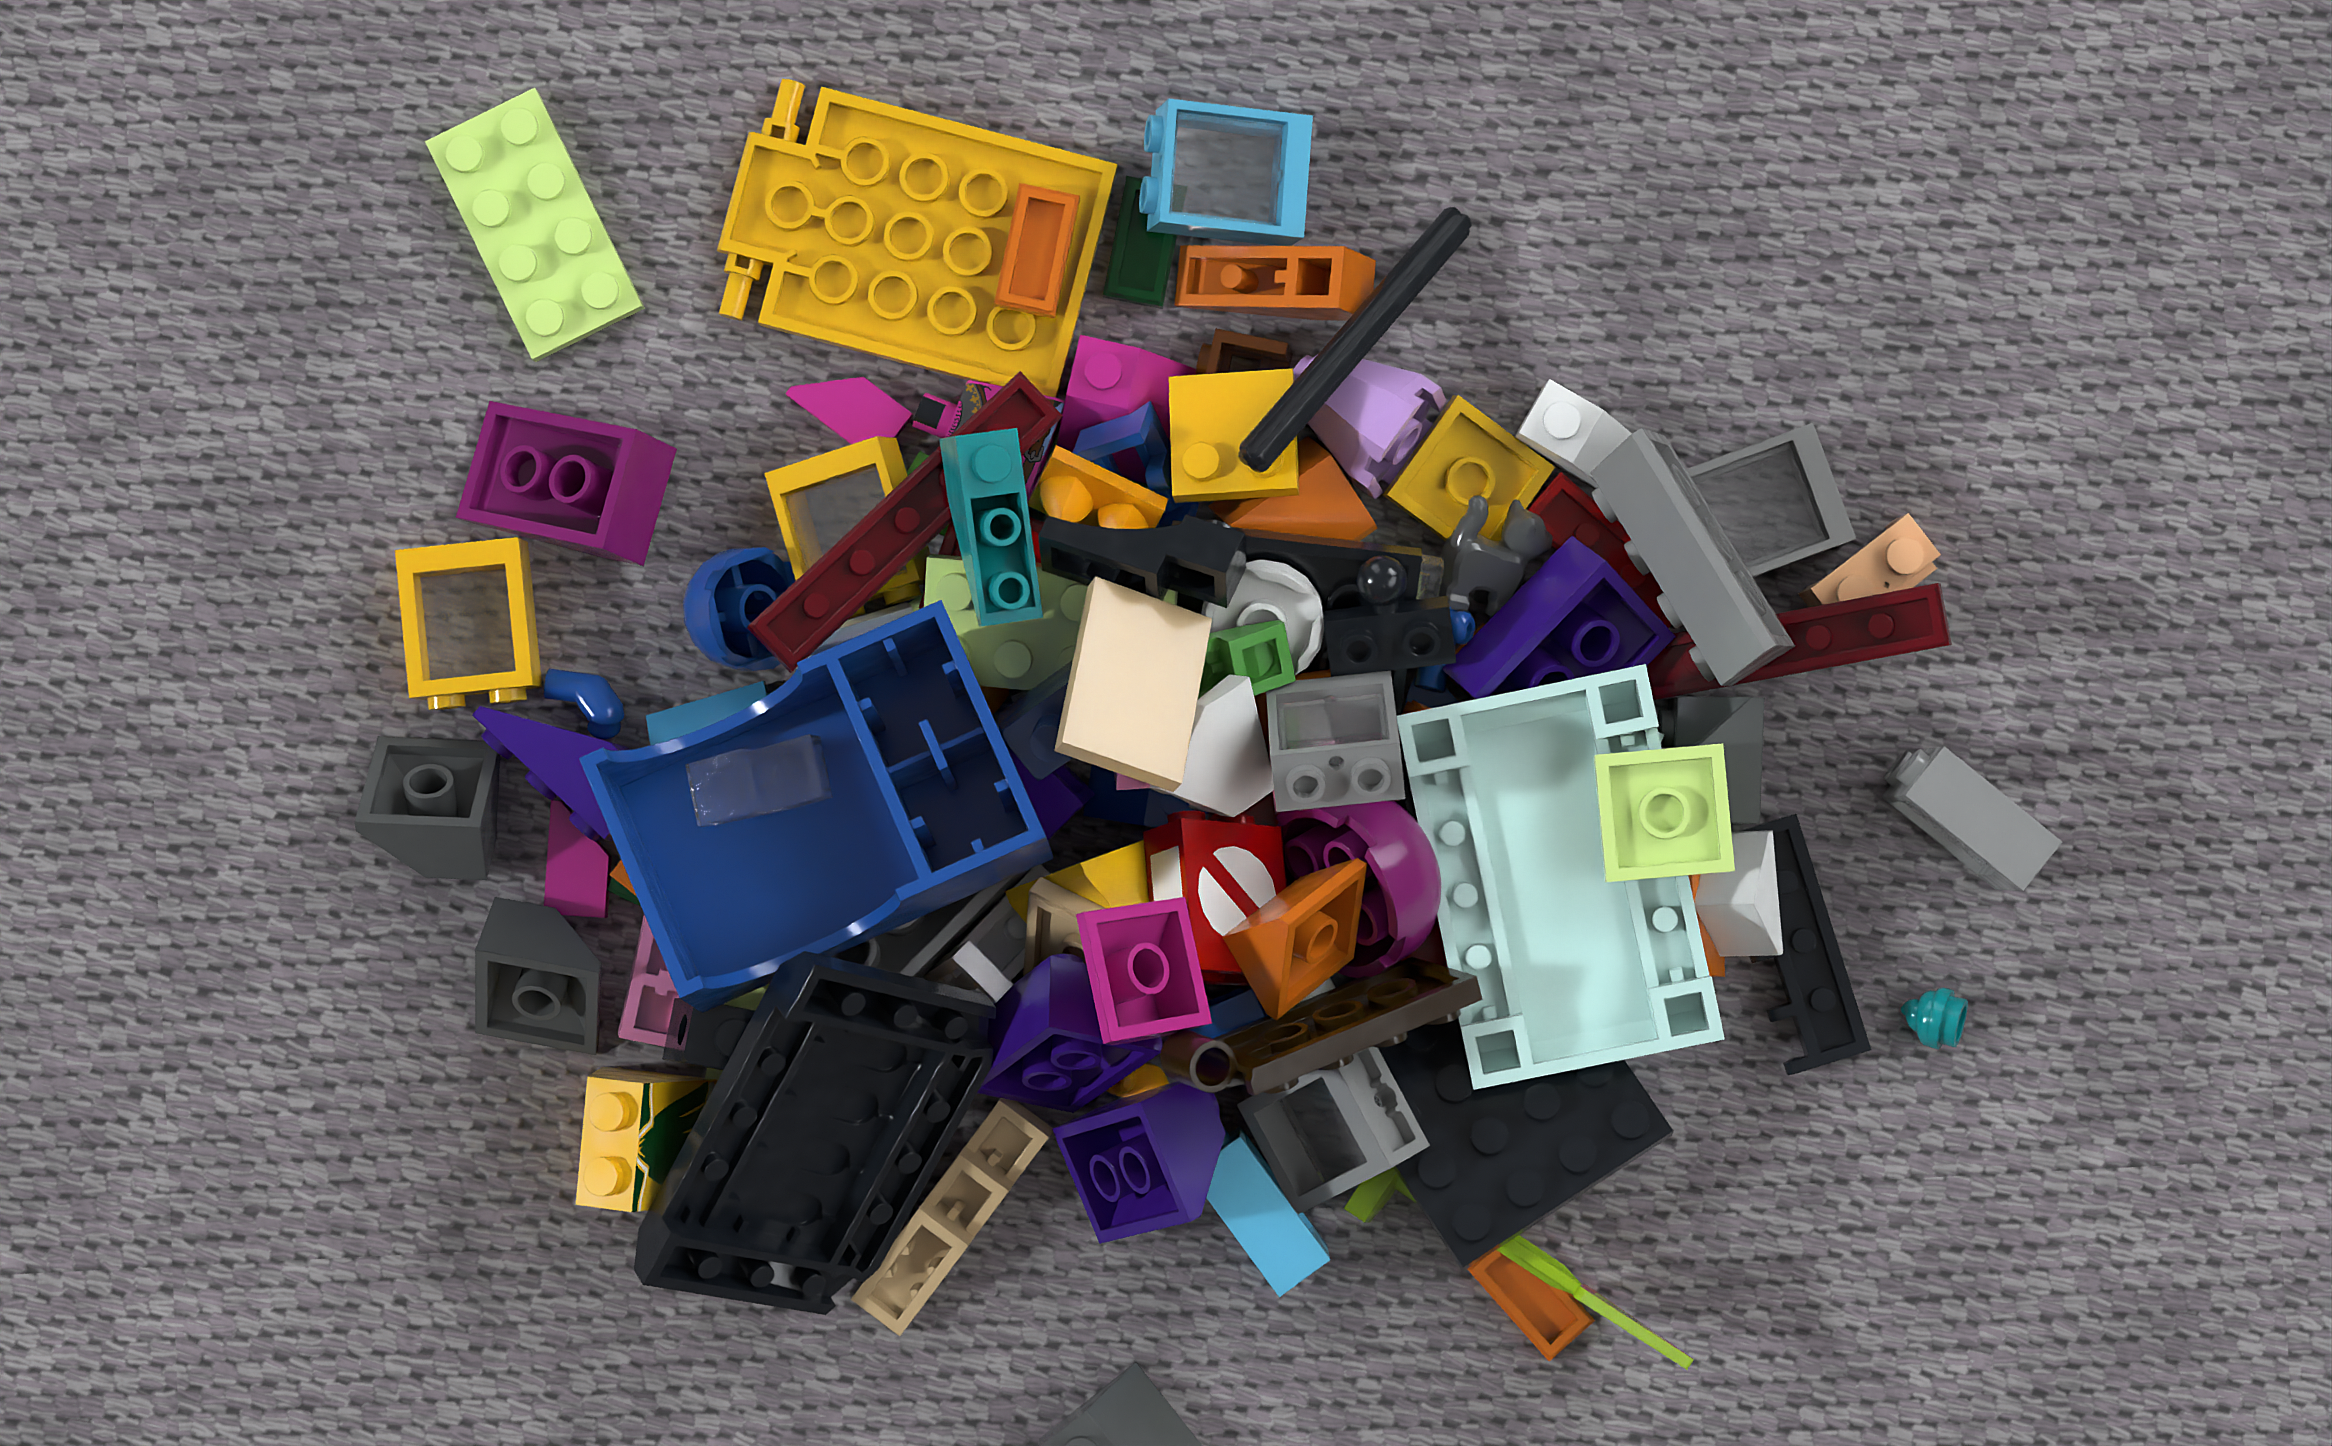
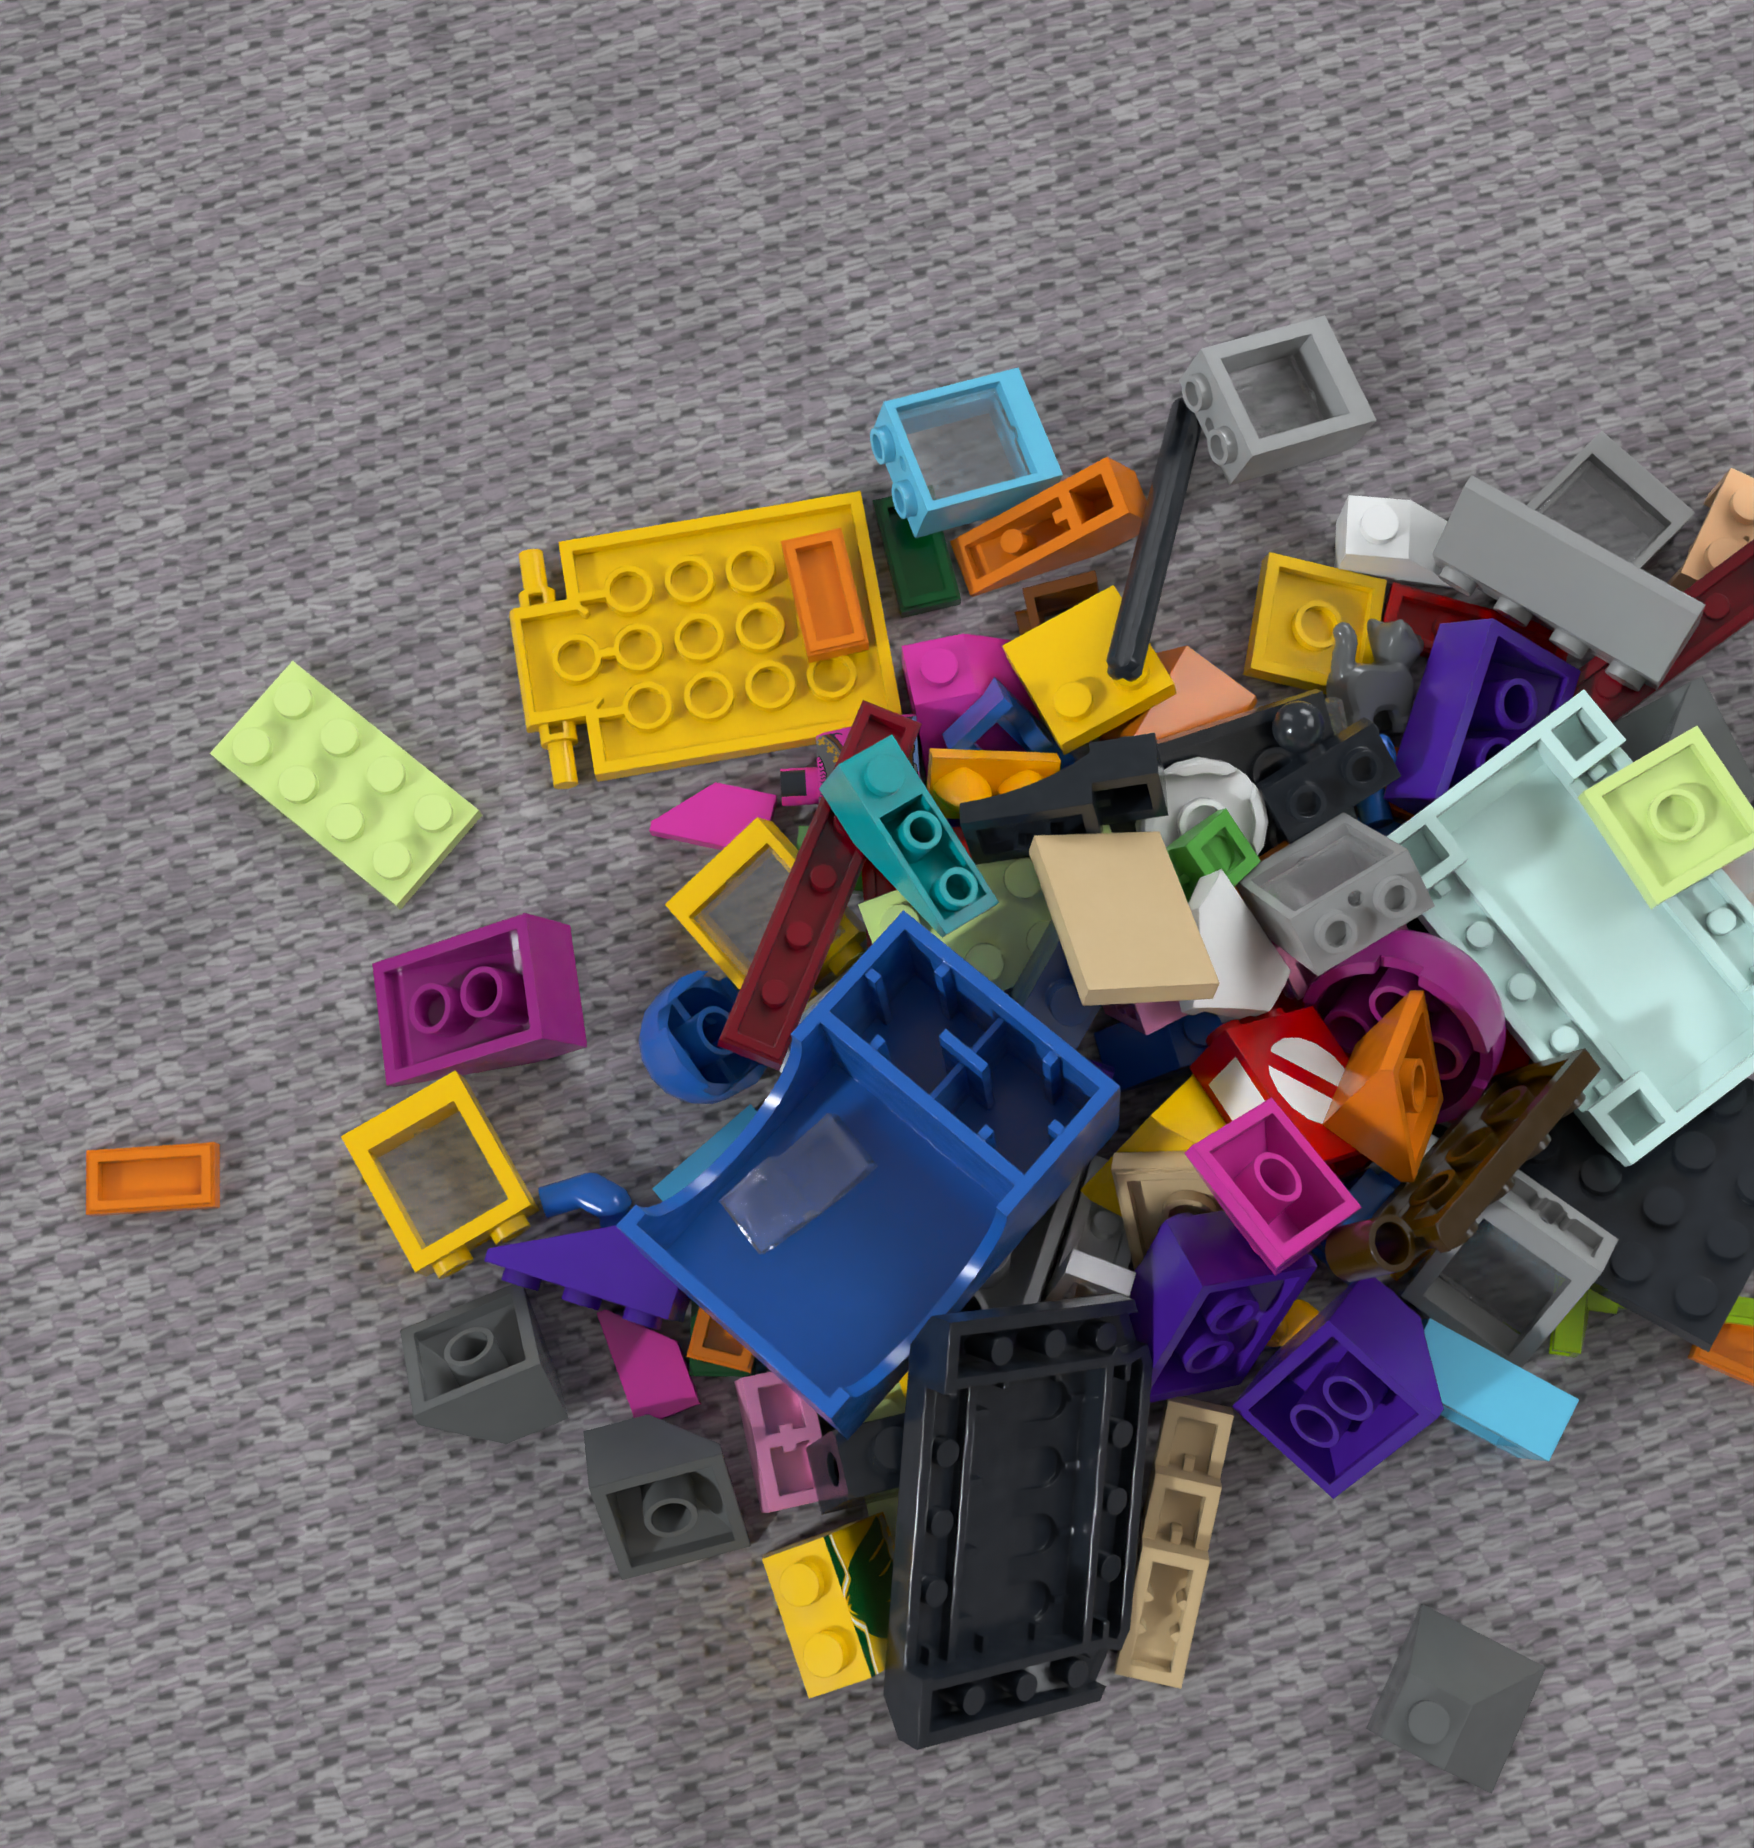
camera: 20 degrees left, 10 degrees down
(219, 506) = (152, 1179): none -> orange tile
(1374, 420) = (1208, 603): lavender cone -> none
(1534, 254) = (1276, 400): none -> light grey window

